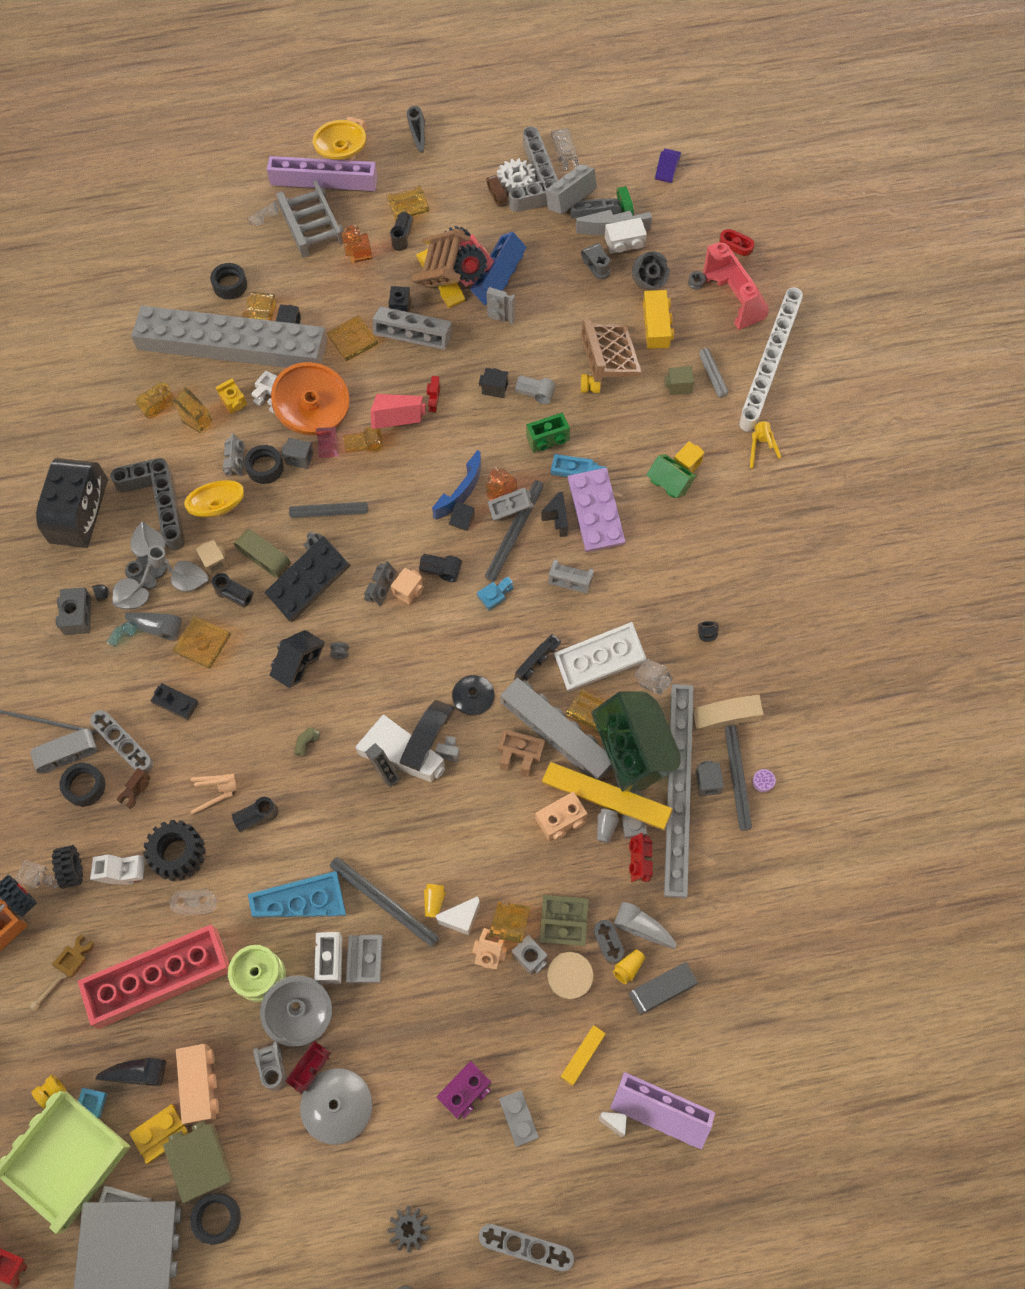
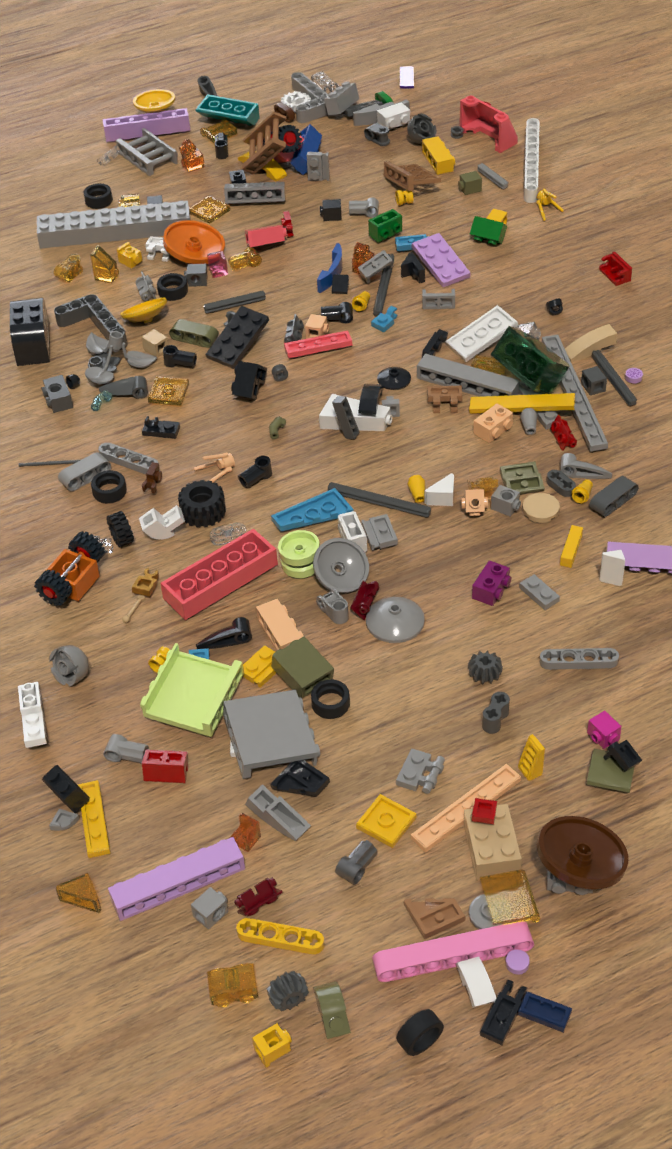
camera: 15 degrees left, 20 degrees down
(400, 614) = (318, 344): none -> coral plate
(427, 174) = (229, 109): none -> teal slope
(475, 555) = (360, 302): none -> yellow cone
(807, 587) = (616, 269): none -> red hinge

